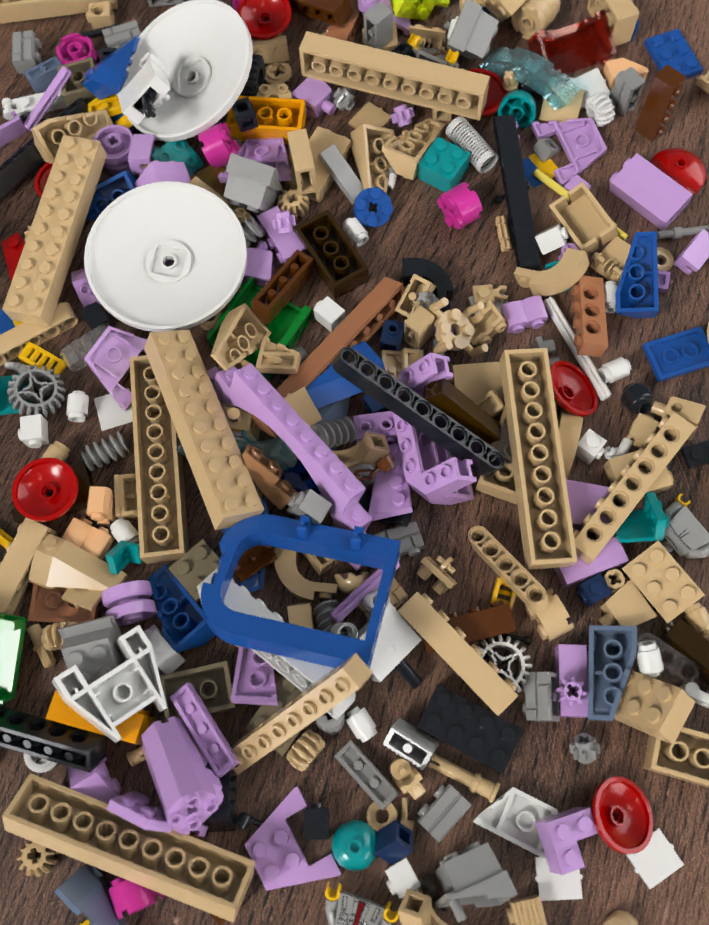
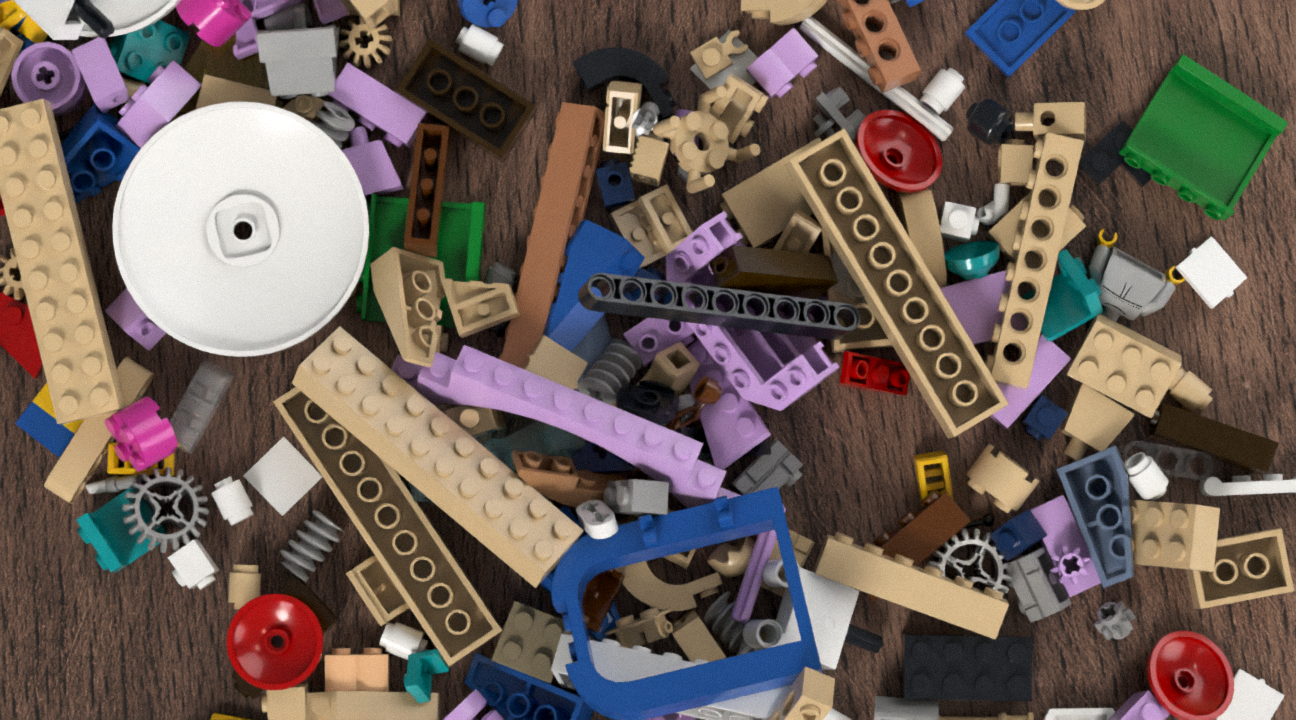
camera: 30 degrees left, 15 degrees up
(47, 340) = (141, 434): none -> dark pink brick
(94, 315) = (179, 360): black brick -> none
(101, 505) = (355, 622): light nougat brick -> none
(111, 360) = (245, 409): lavender wing -> none
(277, 508) = (597, 519): none -> white beam
(278, 595) = (651, 622): none -> tan hinge
(283, 221) = (378, 91): lavender gear -> none
(329, 313) = (510, 195): white brick -> none
(349, 455) = (649, 401): none -> black tile
(444, 580) = (839, 486): tan hips -> none
(494, 511) = (873, 374): none -> red slope
(512, 576) = (937, 452): tan beam -> none
(544, 655) = (1018, 535): none -> dark blue brick
(589, 473) = (972, 259): none -> teal piece
(619, 579) = (1067, 385): tan bush -> none

